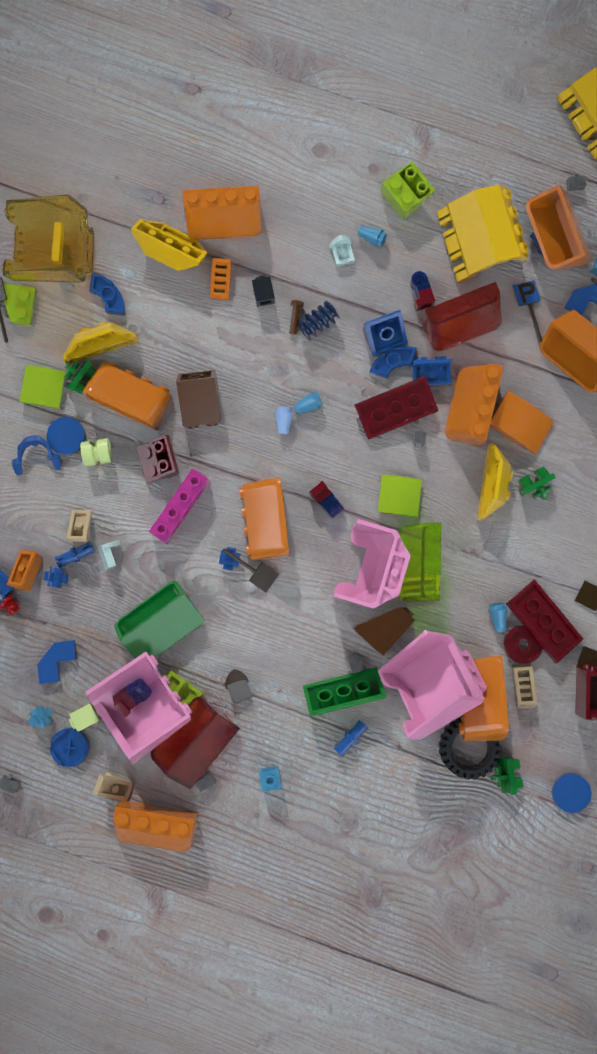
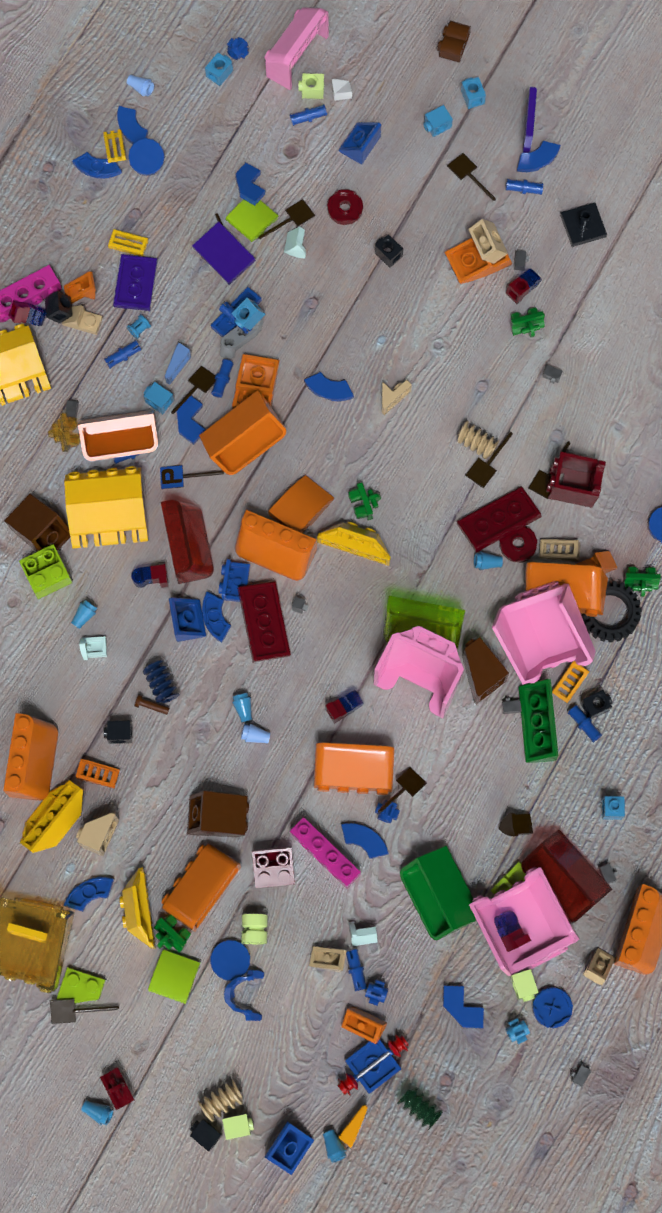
camera: 75 degrees left, 10 degrees down
(158, 289) = (98, 833): none -> tan slope
(201, 542) = (364, 838): none -> blue tile
(369, 739) = (593, 712): none -> black brick
(375, 711) = (576, 685): none -> light orange slope
(399, 495) = (352, 634): lime slope -> none
(452, 173) = (38, 524): none -> reddish brown slope
(518, 730) = (601, 559): none -> orange slope
(559, 179) = (61, 432): none -> clear yellow hips

